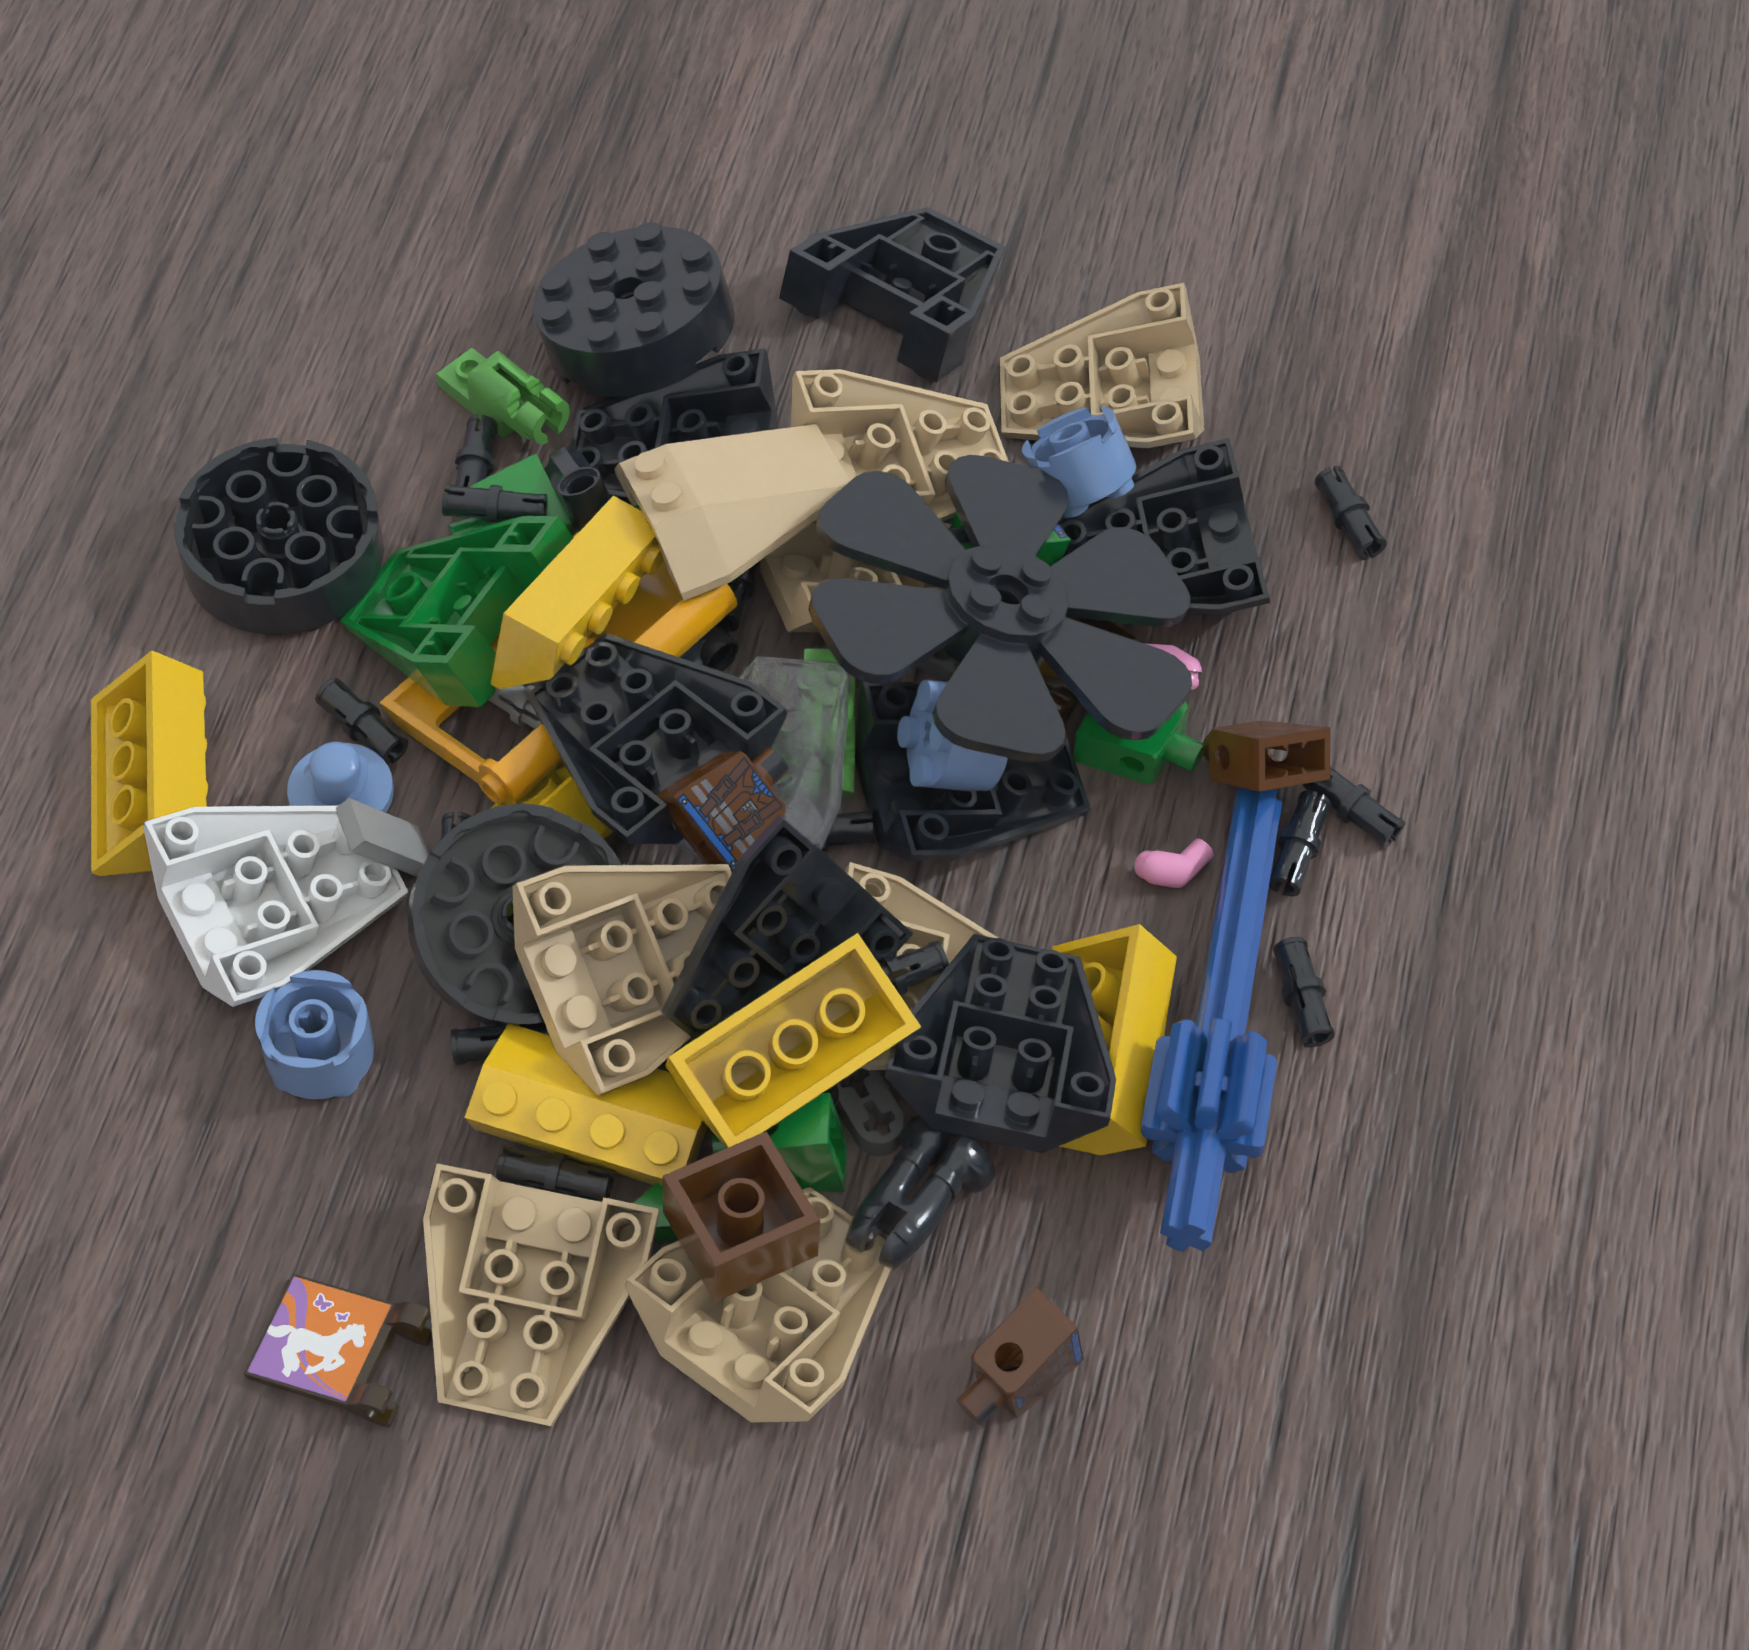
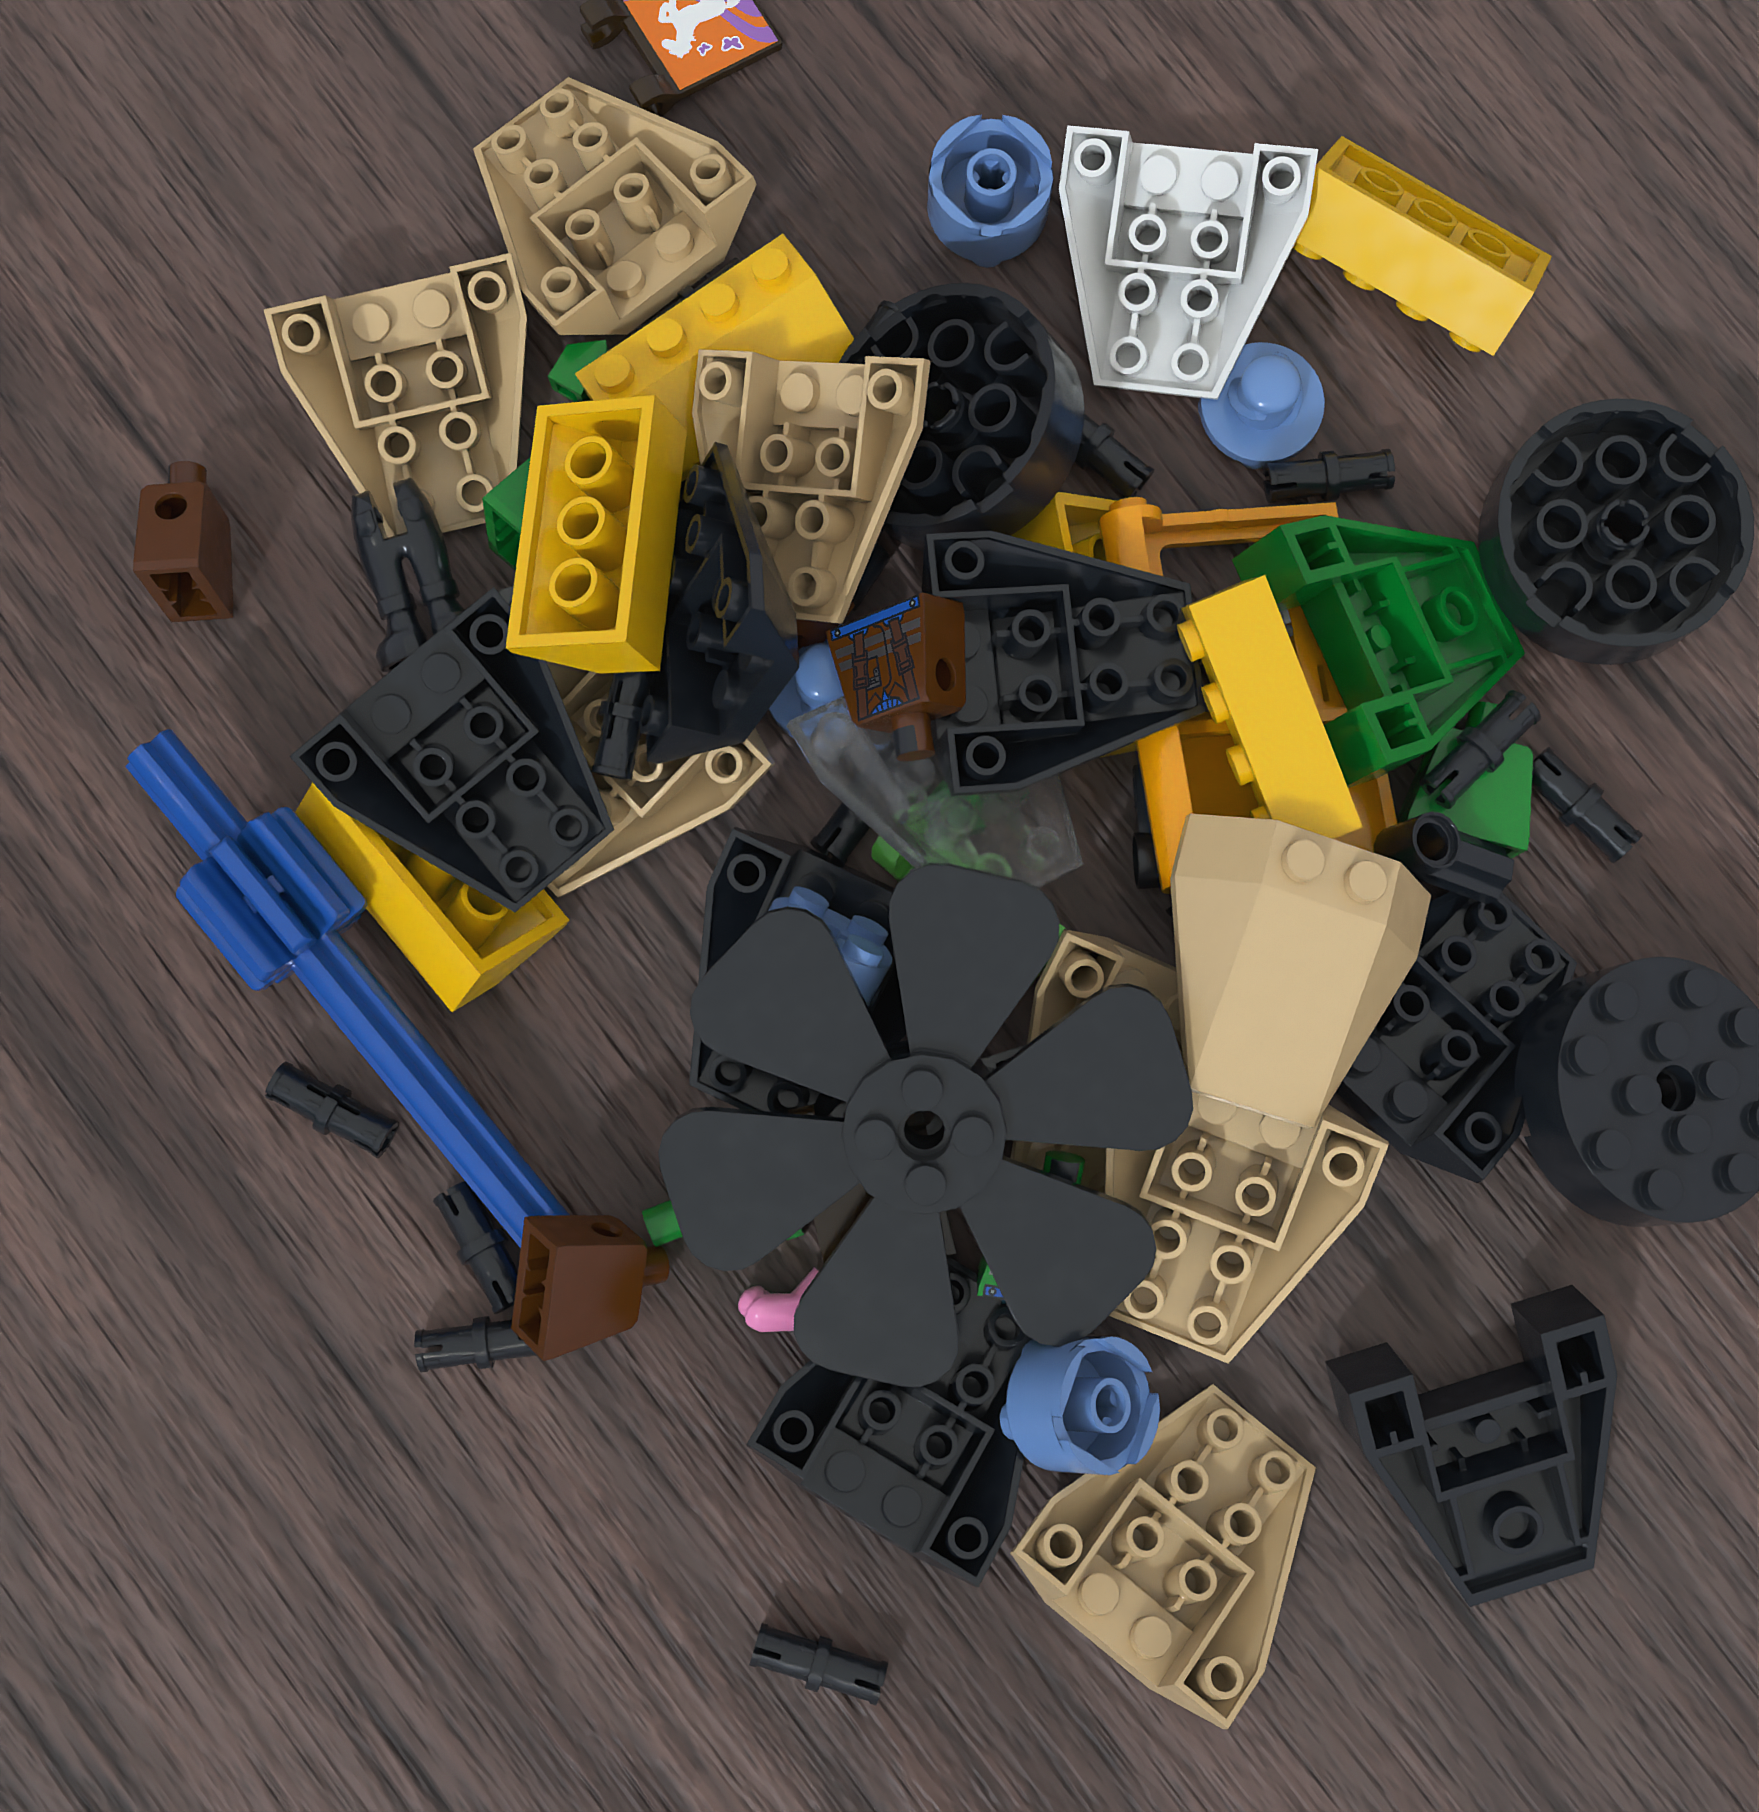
camera: 130 degrees right, 25 degrees up
(382, 836) = (1156, 382): light grey tile -> none
(504, 393) = (1649, 888): bright green plate -> none
(740, 1216) = (477, 375): reddish brown brick -> none
(1173, 869) = (555, 1102): bright pink arm -> none

